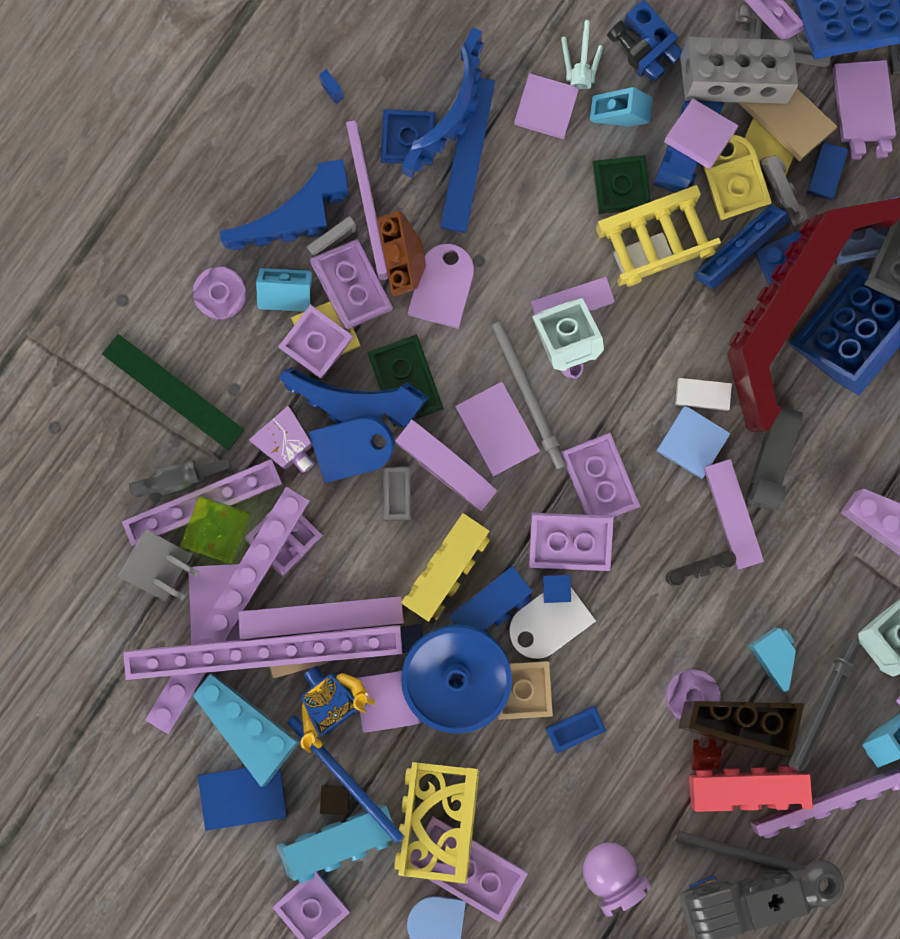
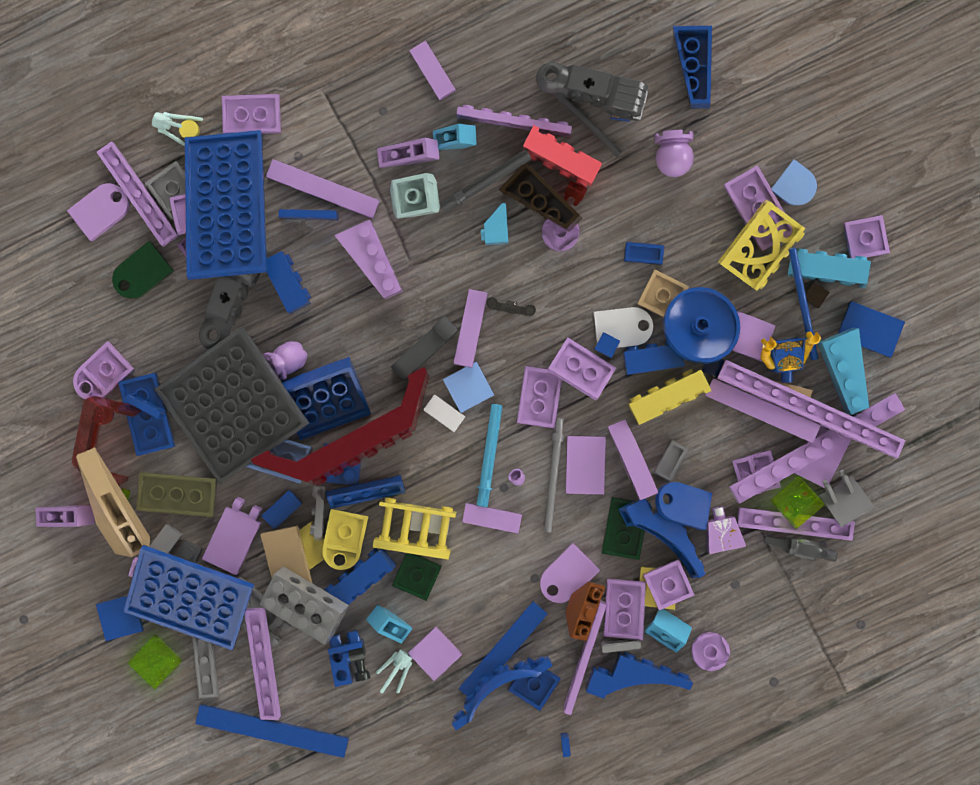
camera: 150 degrees left, 5 degrees up
(173, 392) = (774, 604): dark green tile -> none
(569, 334) = (509, 498): light aqua slope -> none
(621, 378) = (489, 455): none -> medium azure axle
(701, 133) = (353, 577): lavender tile -> none

